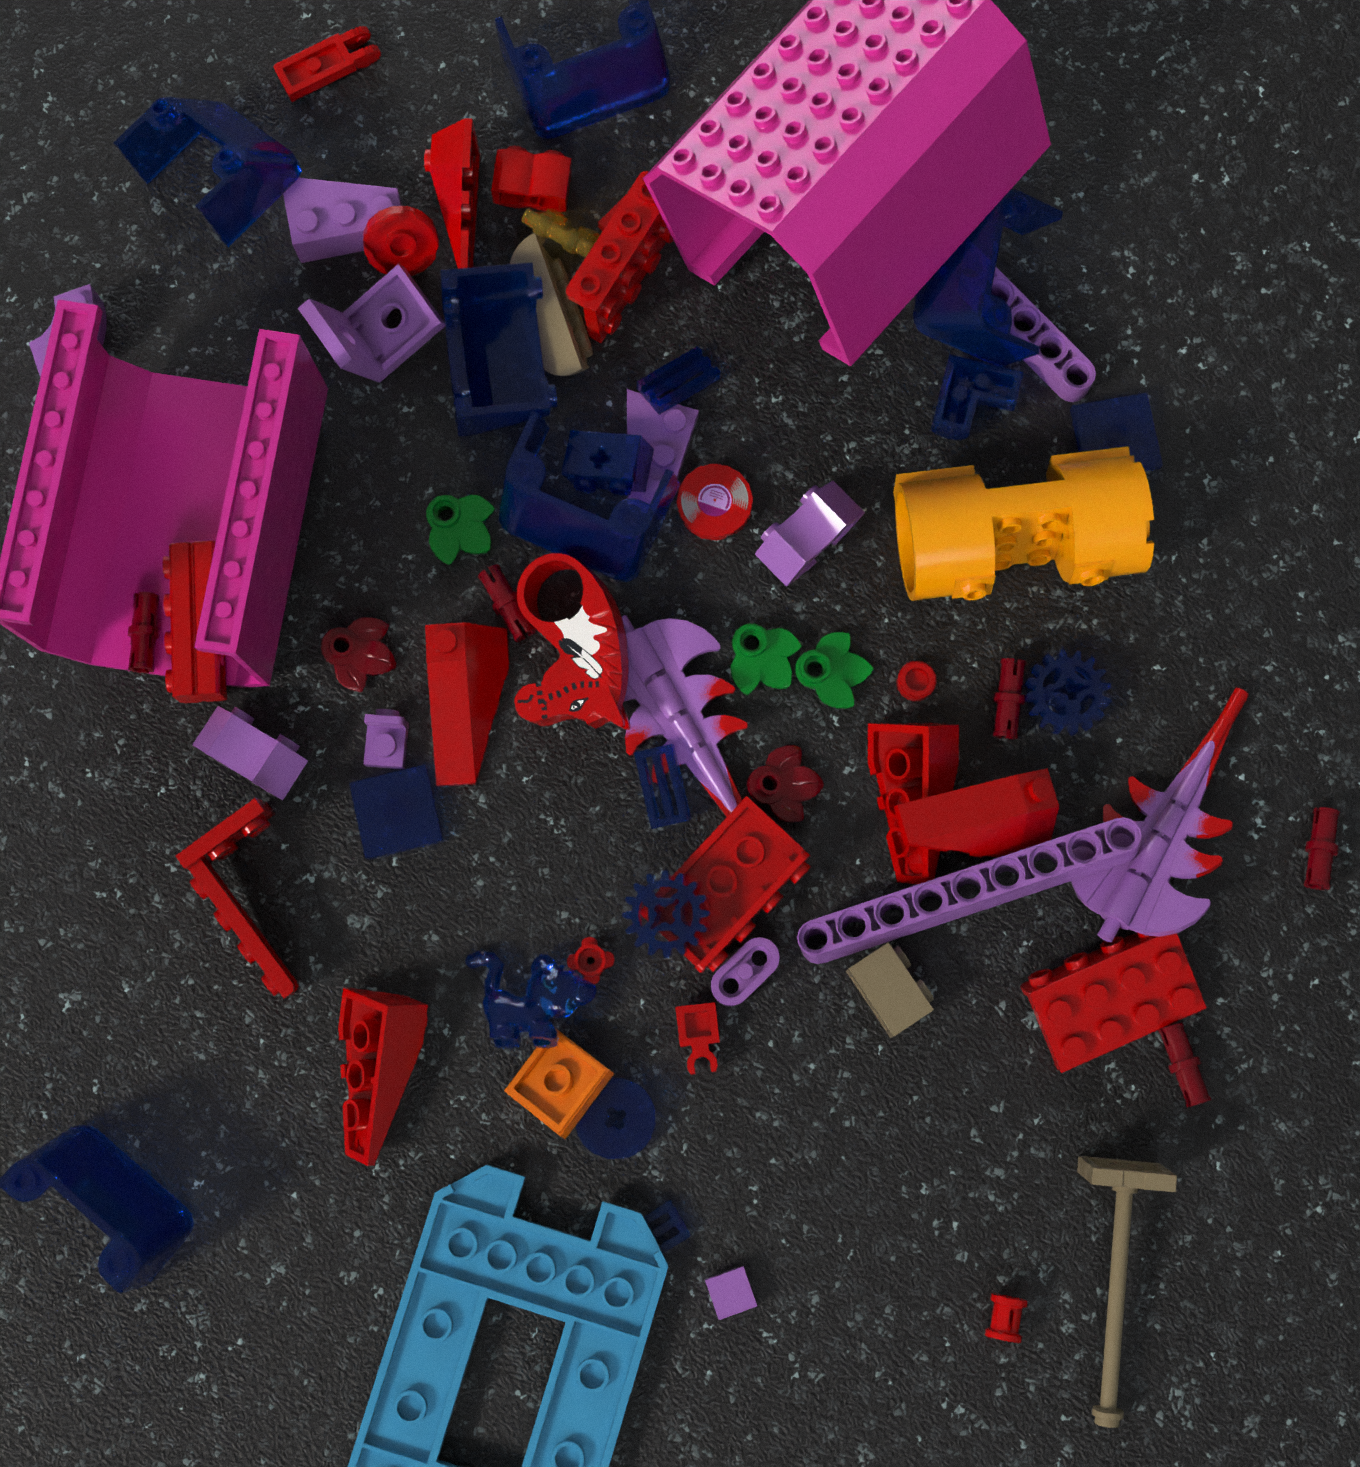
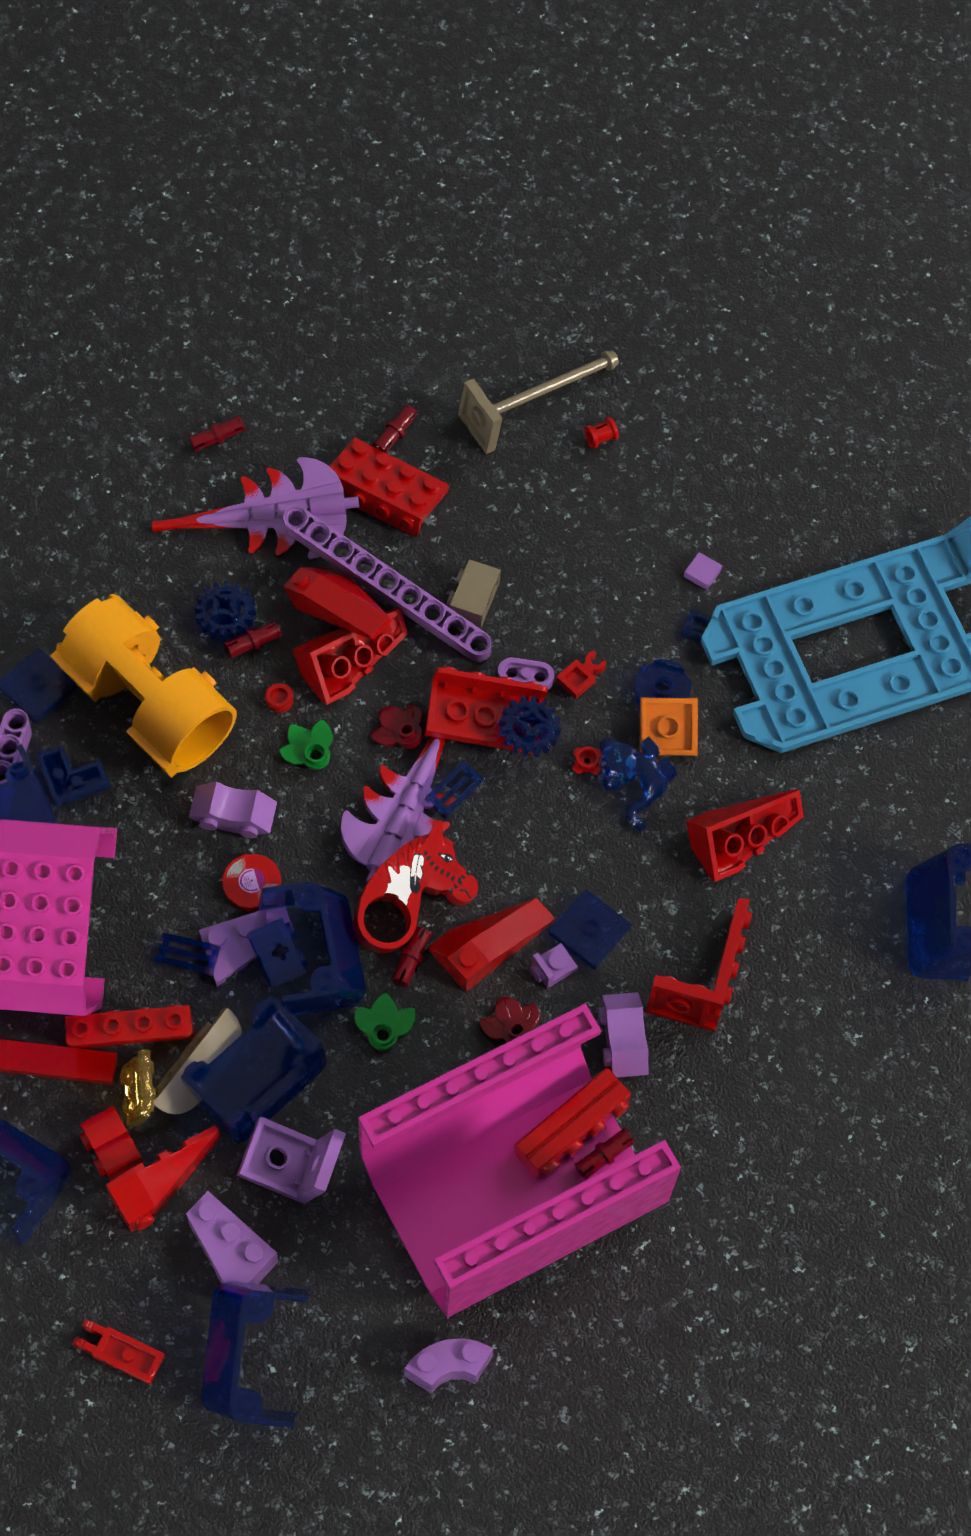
camera: 135 degrees left, 15 degrees down
(400, 237) = (220, 1188): red tile -> none
(765, 663) = (331, 786): green plate -> none

